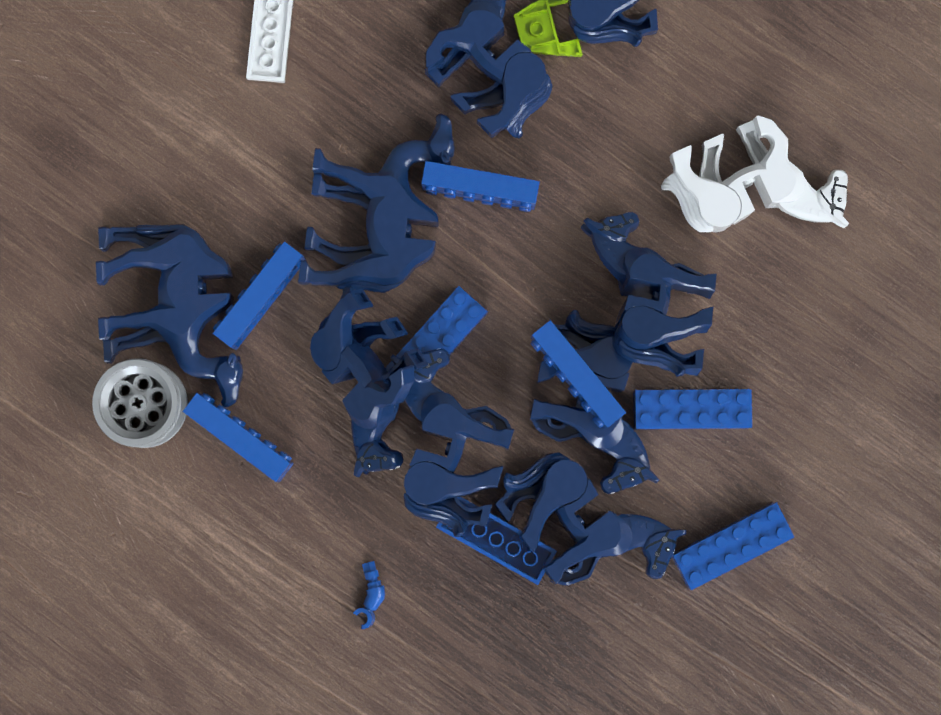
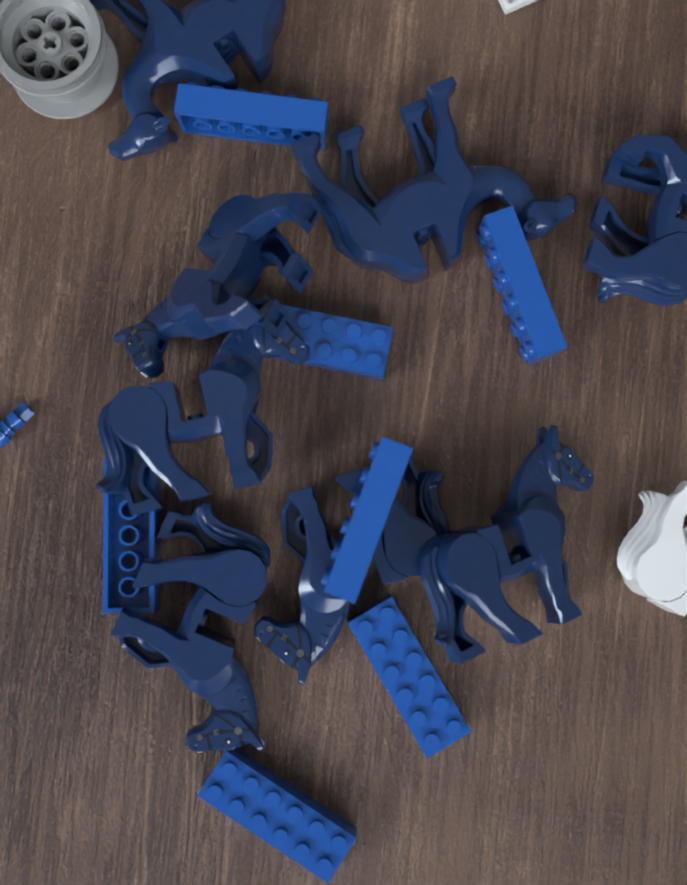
camera: 60 degrees right, 0 degrees up
(239, 438) = (83, 183): blue brick -> none

